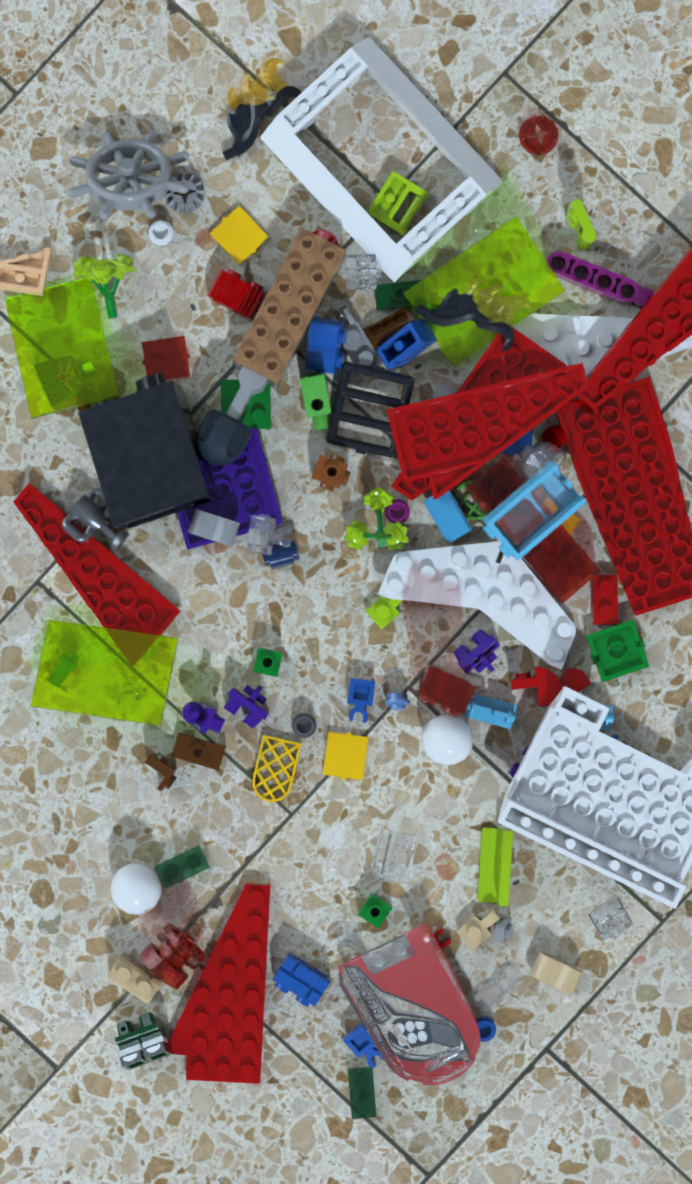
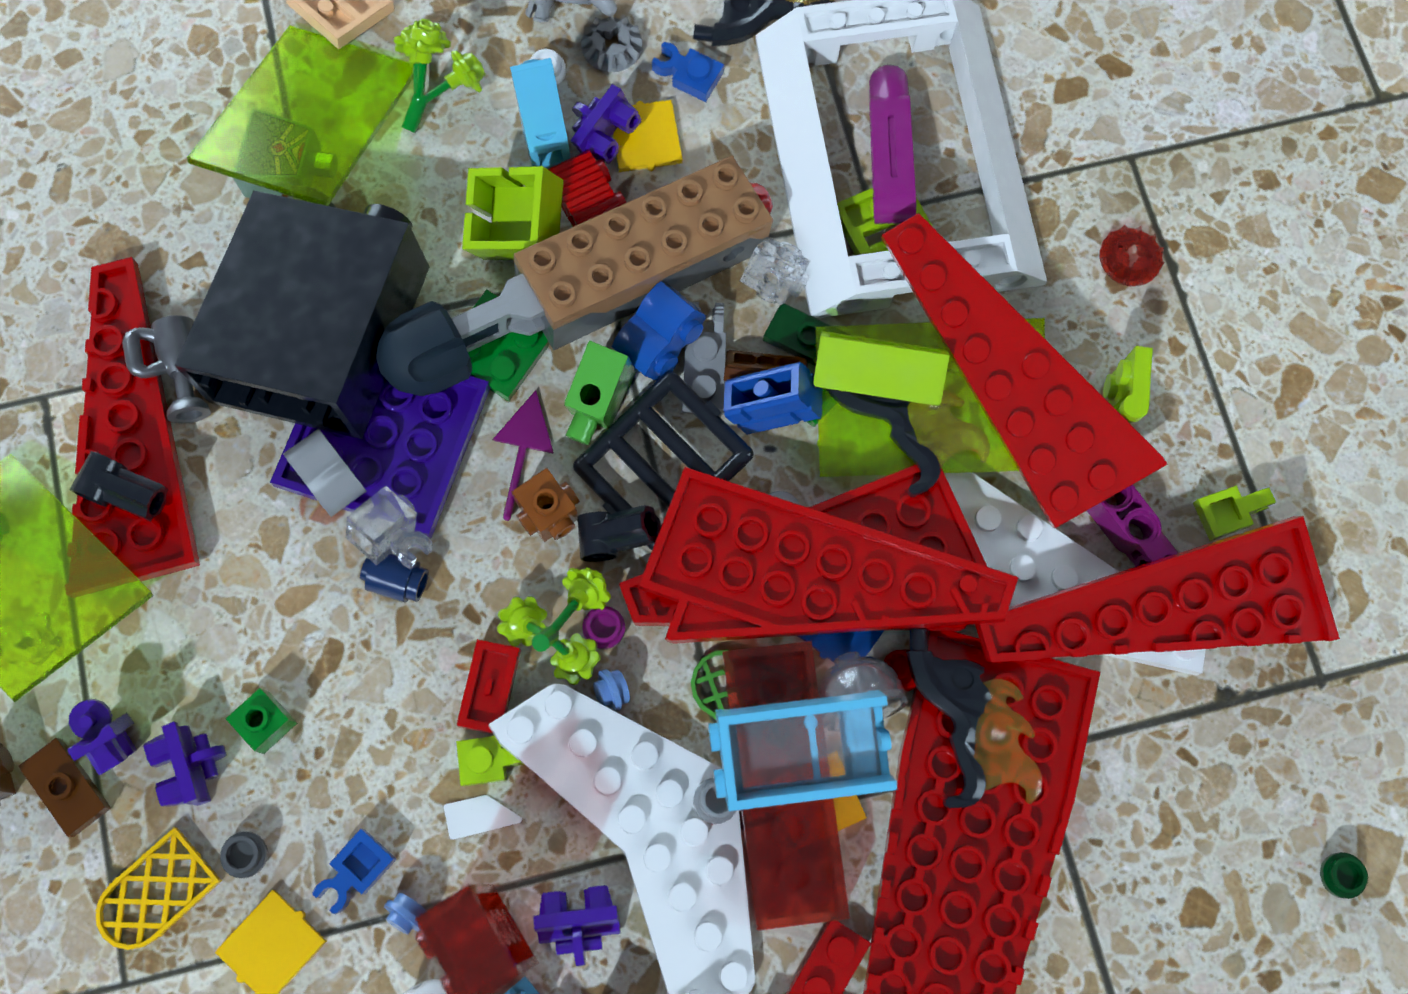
camera: 30 degrees right, 15 degrees down
(114, 602) = (111, 483): none -> black piece
(166, 357) = (438, 223): clear red piece -> none
(187, 270) = (540, 112): none -> medium azure slope
(213, 330) = (517, 213): none -> lime piece
(216, 238) = (599, 122): none -> dark purple hips
(241, 181) = (691, 73): none -> blue plate
(290, 439) = (524, 430): none -> magenta piece
(362, 575) = (488, 685): none -> red plate
(370, 464) = (608, 533): none -> black piece
(376, 159) = (891, 146): none -> magenta piece
(398, 638) = (477, 816): none -> white sticker
(422, 539) = (611, 689): none -> medium blue plate
(448, 516) = (672, 682): dark azure slope -> none
(451, 296) = (881, 368): none -> lime panel
(502, 562) = (708, 806): none -> light grey plate
(549, 266) = (1047, 415): none -> red wing
(608, 439) = (983, 723): none -> piece
(666, 249) = (1229, 511): none -> lime plate

